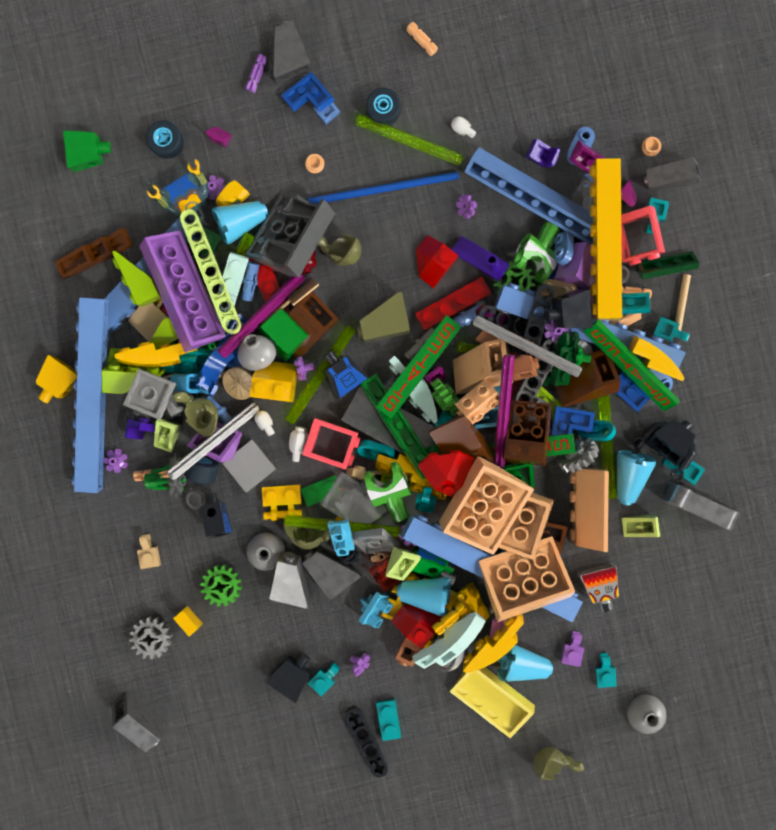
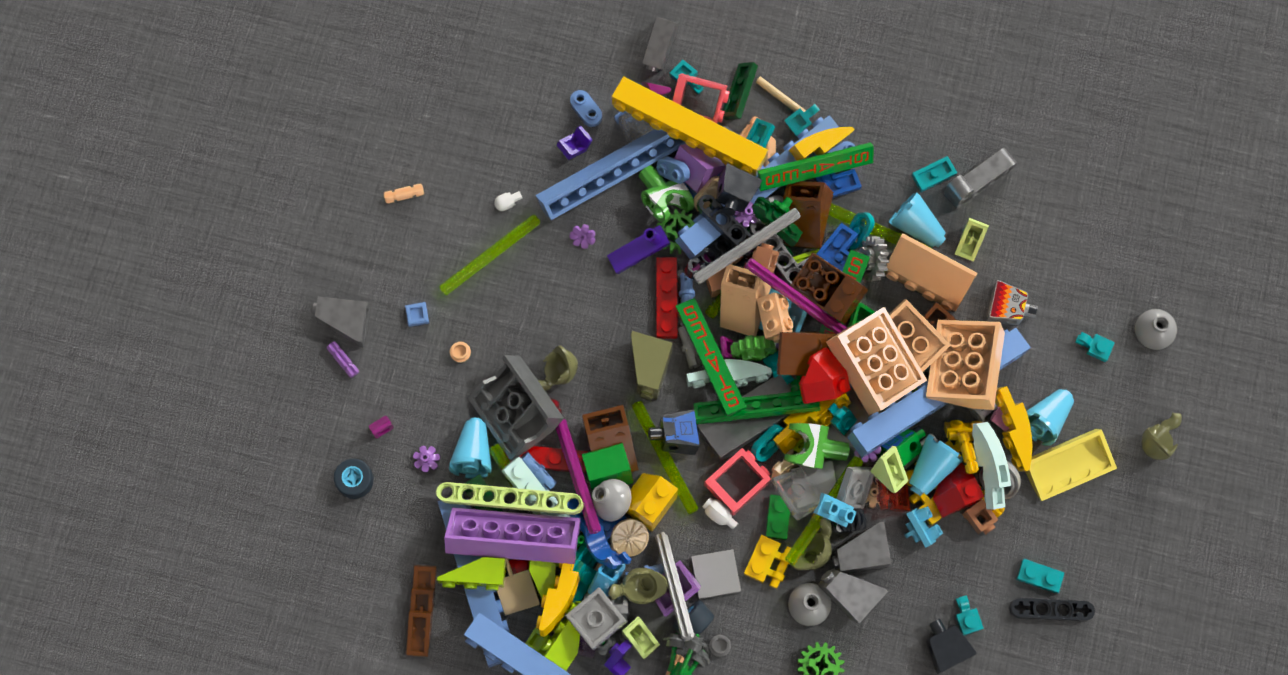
camera: 60 degrees left, 15 degrees down
(84, 150) = (316, 561): green torso -> none
(184, 193) = (418, 487): torso -> none
(215, 525) = (758, 633): black torso -> none
(232, 194) = (445, 443): yellow rock -> none
(264, 422) = (680, 535): white cylinder -> none
(298, 295) = (578, 431): tan piece -> none
(302, 368) = (649, 467): medium lavender plant -> none
(308, 89) = (389, 317): blue plate -> none
(360, 663) = (969, 572): medium lavender plant -> none
(383, 106) = (446, 267): black wheel -> none
(386, 187) = (521, 301): blue piece -> none
(434, 260) = (616, 292): red slope -> none
(572, 652) = (1060, 366): medium lavender plate -> none
(584, 156) = (600, 108): magenta slope -> none
(651, 146) = (623, 48): light nougat plate -> none
(672, 441) = (905, 170): black torso -> none

